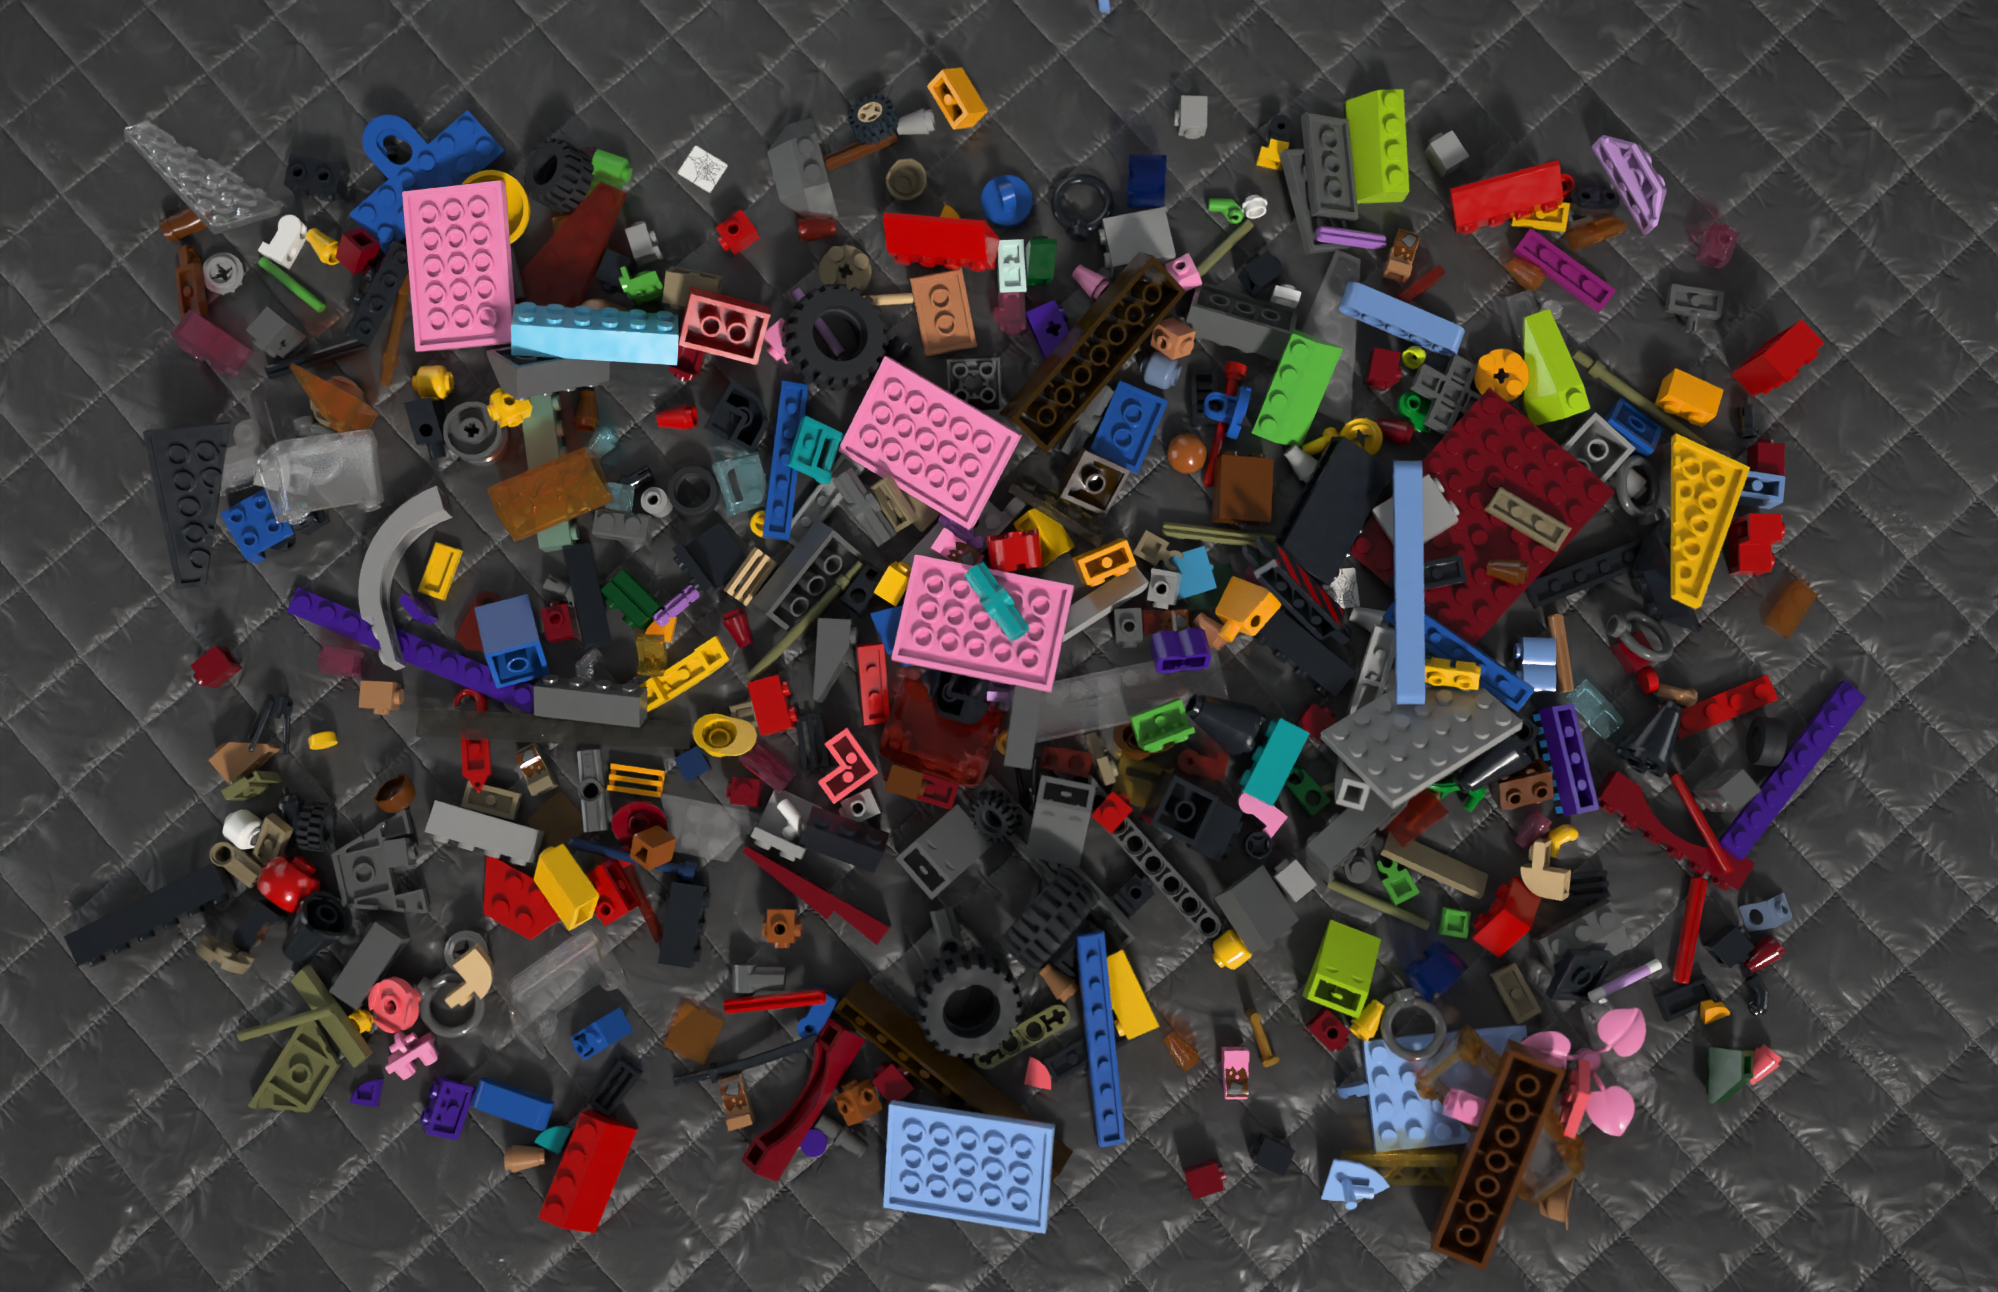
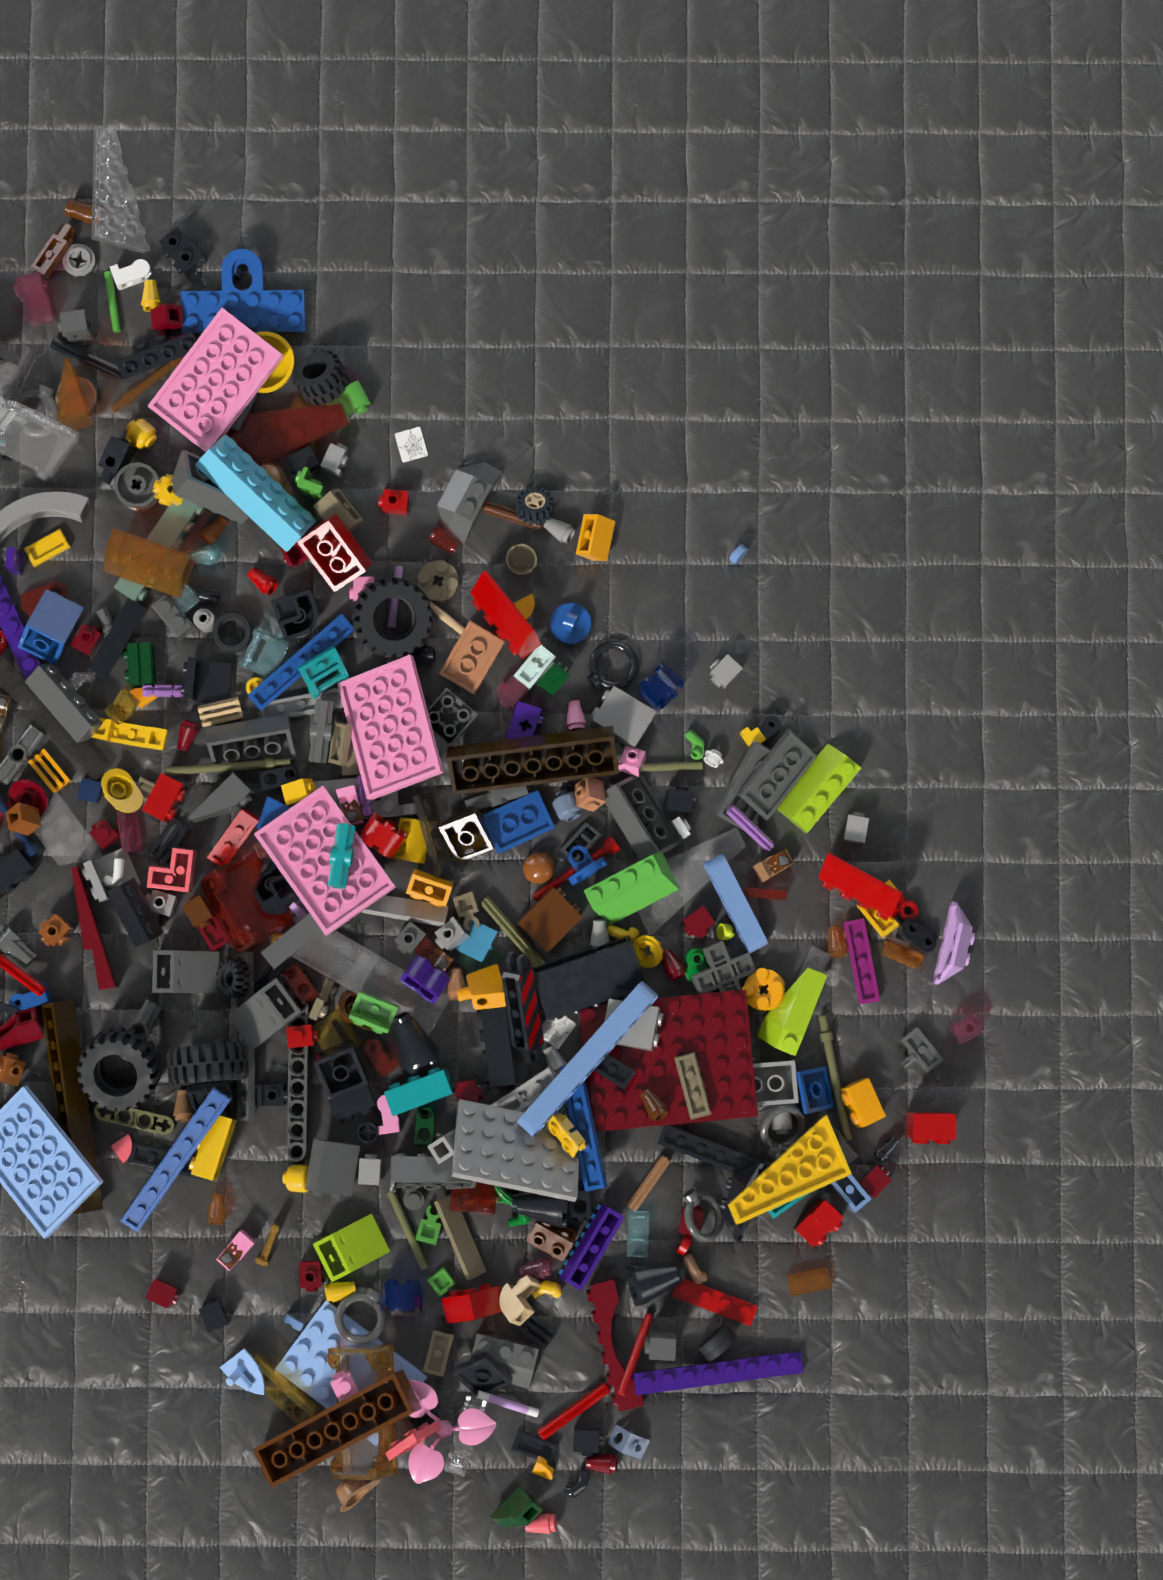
camera: 45 degrees right, 0 degrees up
(892, 1081) = (37, 1076): dark red brick -> none
(1536, 662) = (626, 1176): medium blue brick -> none

